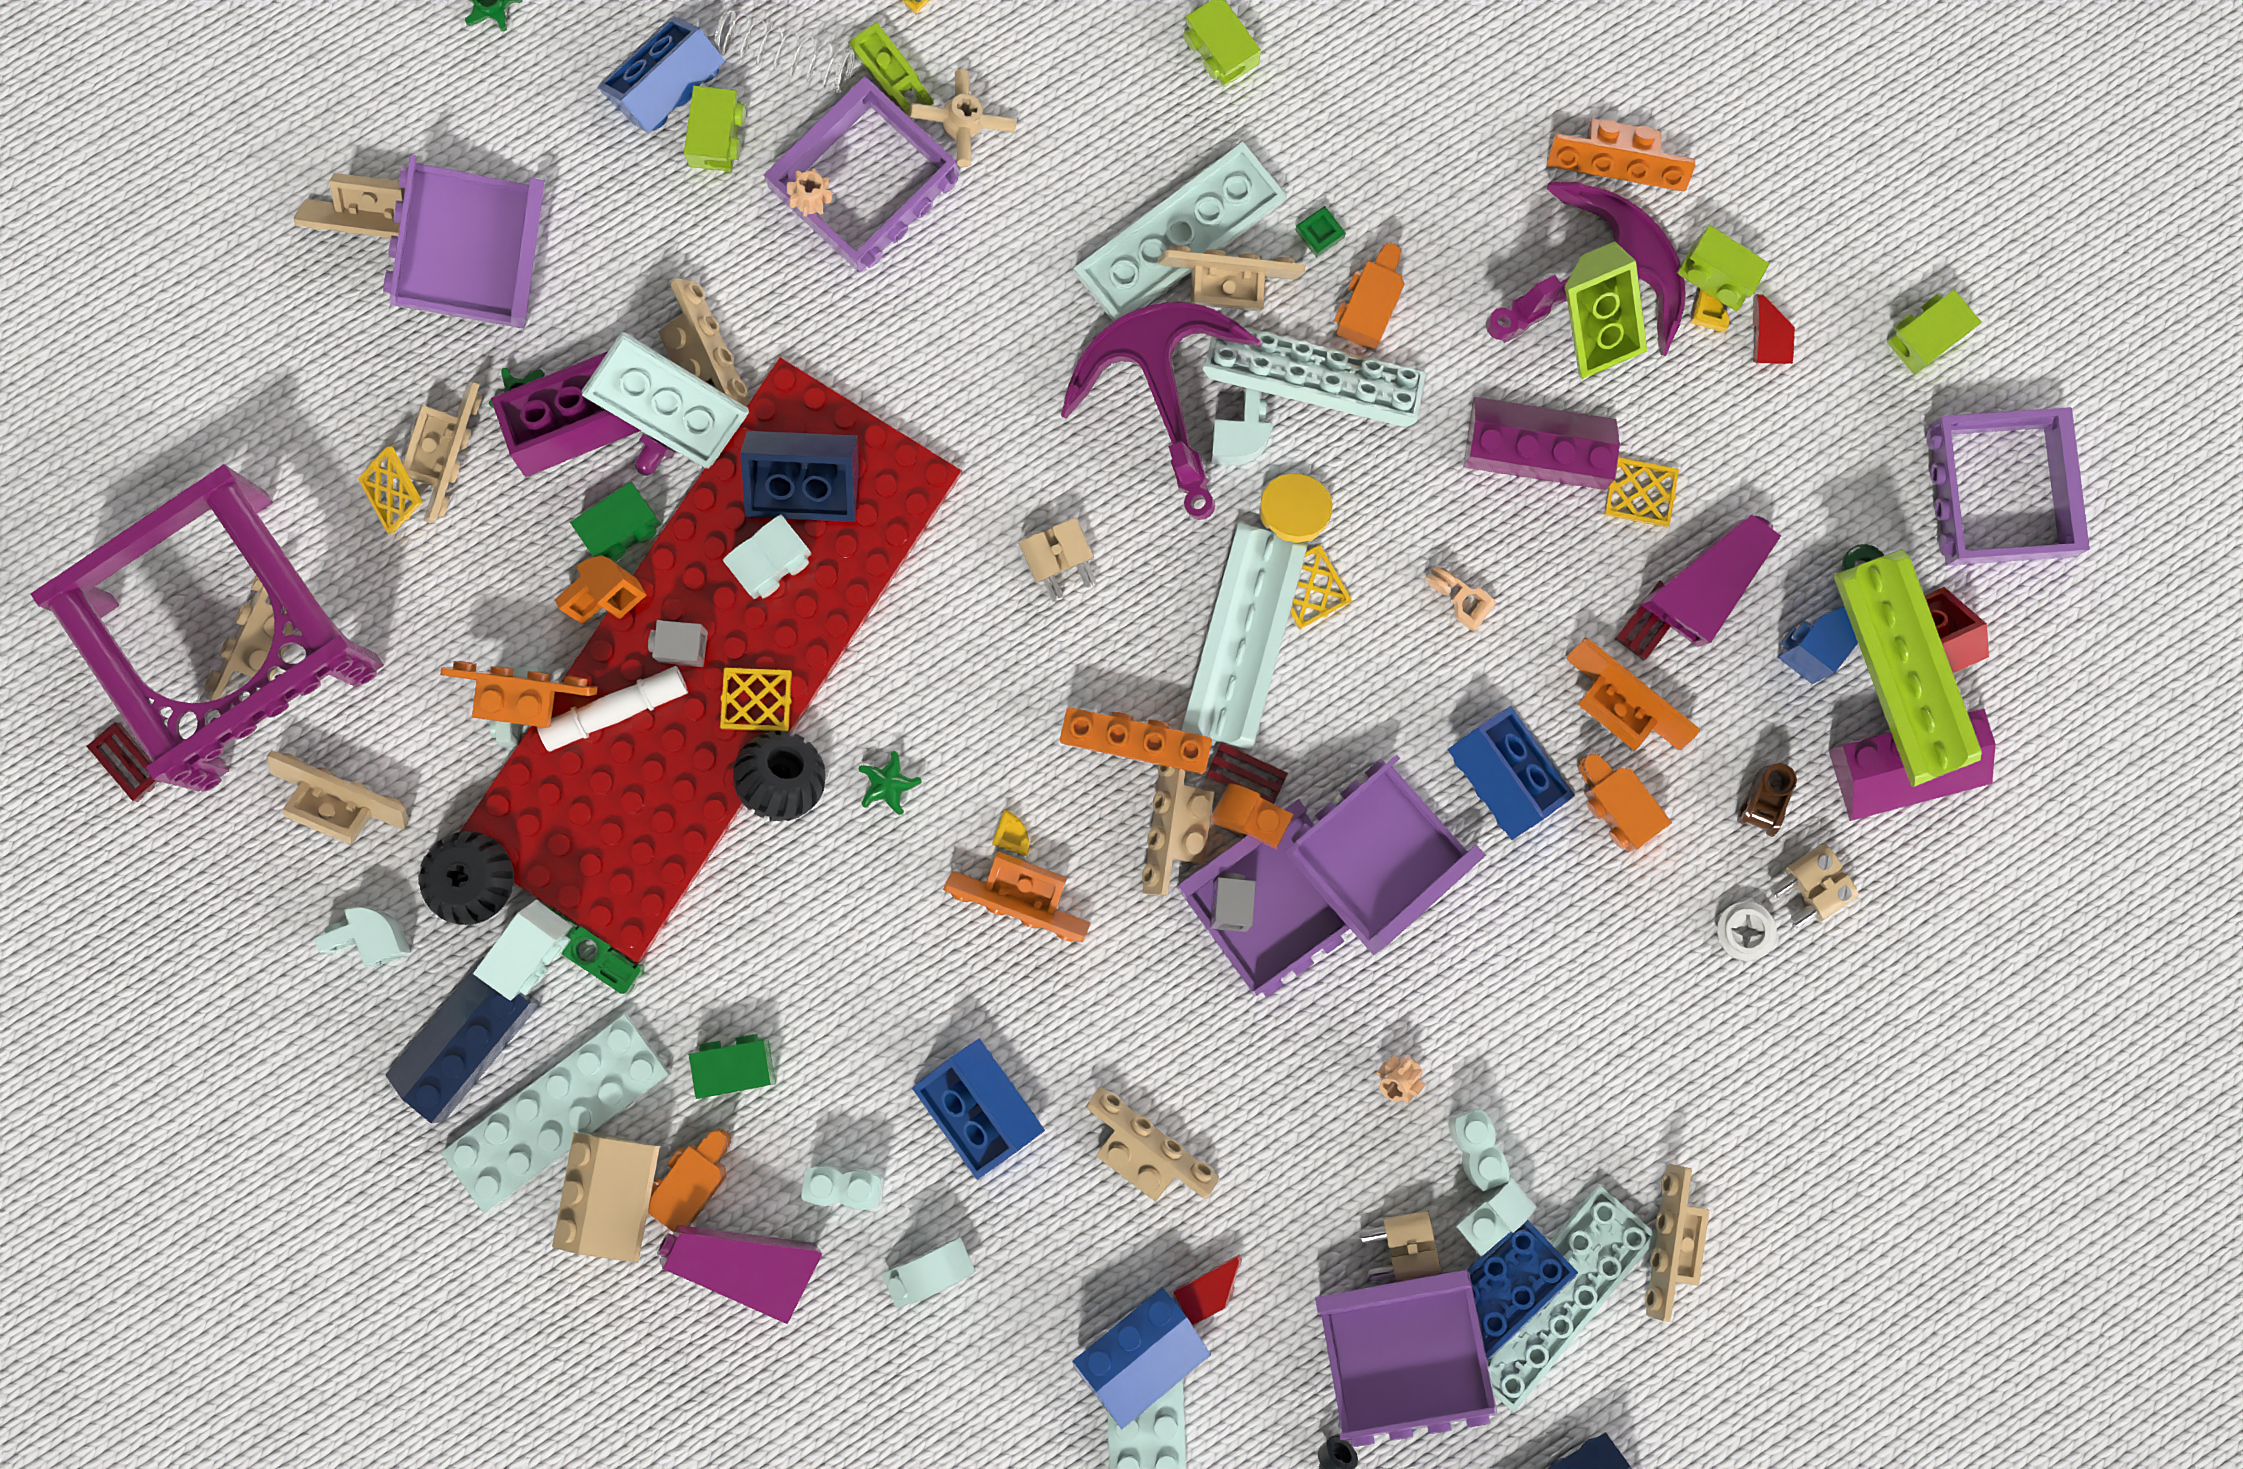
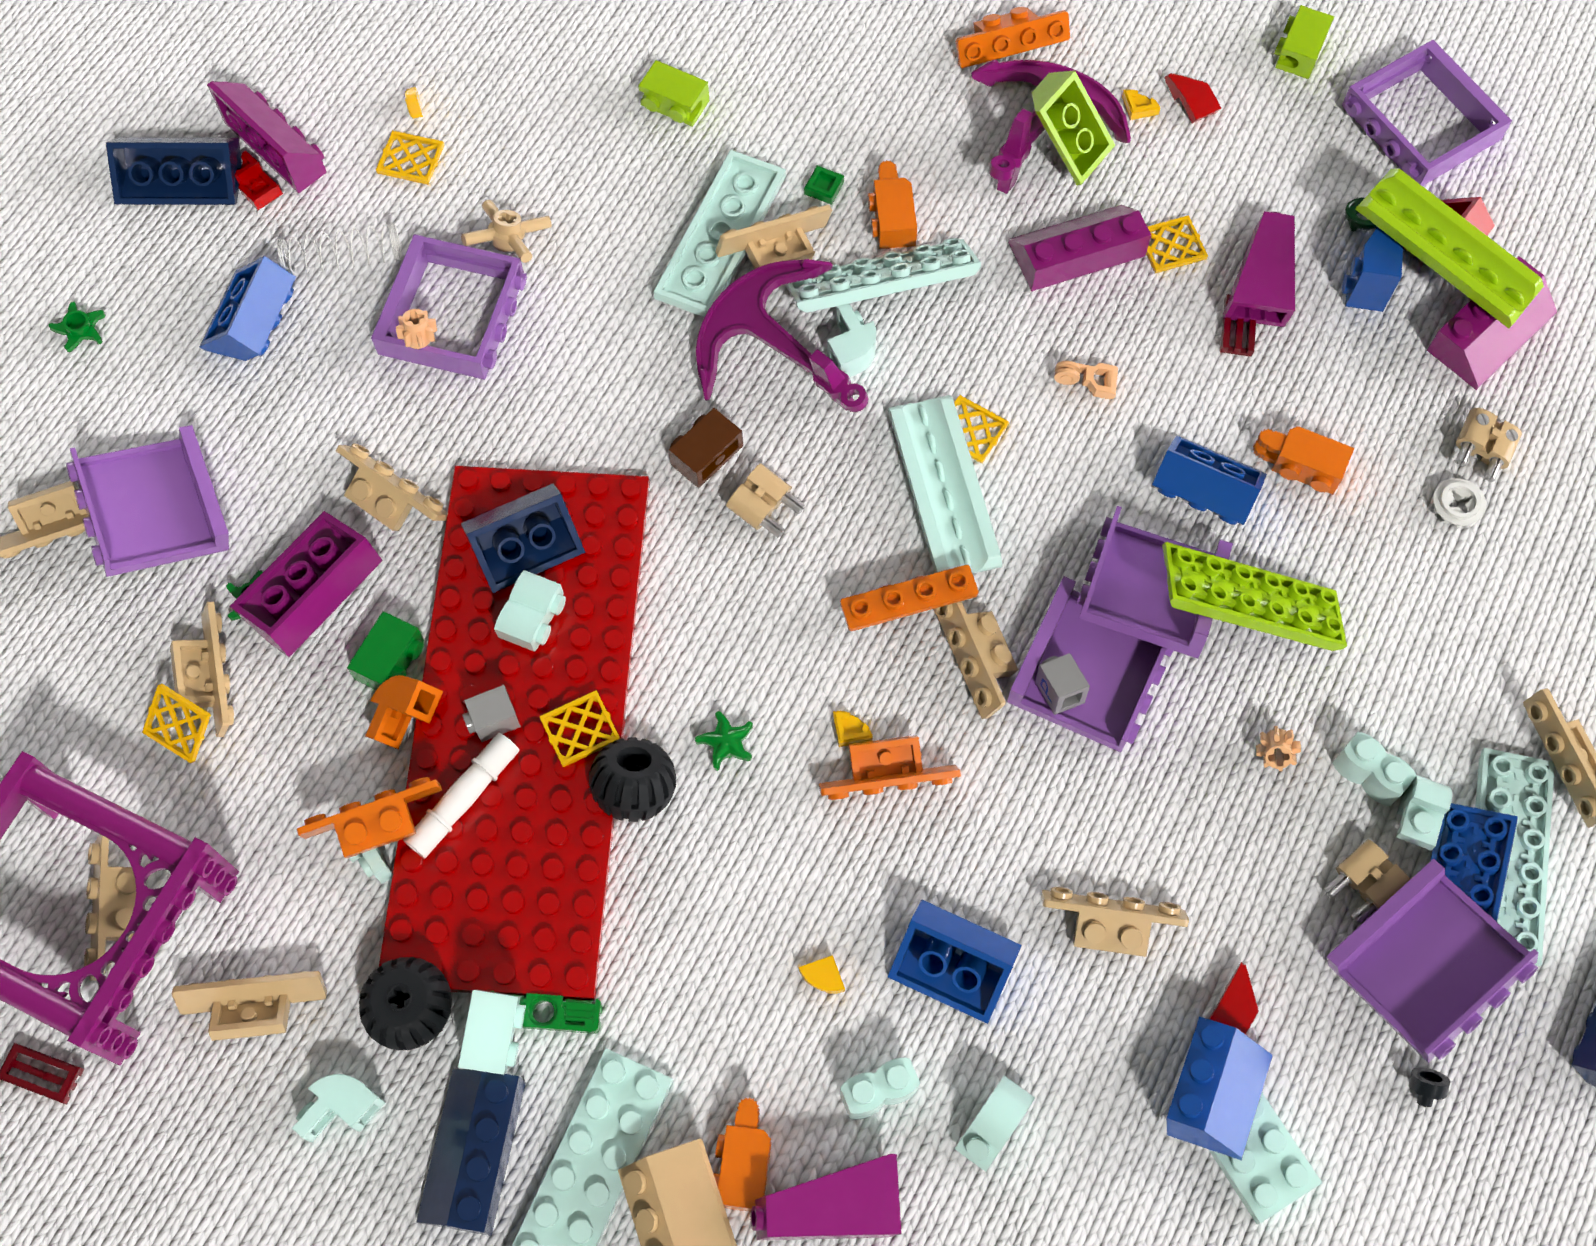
camera: 25 degrees left, 15 degrees down
(651, 455) = (388, 588): magenta piece -> none
(664, 401) = (380, 531): light aqua tile -> none
(714, 129) = (311, 329): lime brick -> none
(732, 1067) = (725, 1040): green brick -> none
(854, 1055) = (823, 975): none -> yellow tile
(888, 67) = (422, 221): lime hinge -> none
(1032, 468) = (705, 447): none -> reddish brown brick
(1248, 814) = (1027, 606): orange brick -> none
(1252, 761) = (1006, 575): dark red tile -> none
(1296, 507) = (926, 375): yellow tile -> none
(1464, 925) = (1253, 598): none -> lime plate
(1625, 702) = (1261, 385): orange bracket -> none
(1723, 268) = (1131, 68): lime brick -> none
(1763, 804) = (1412, 404): reddish brown piece -> none

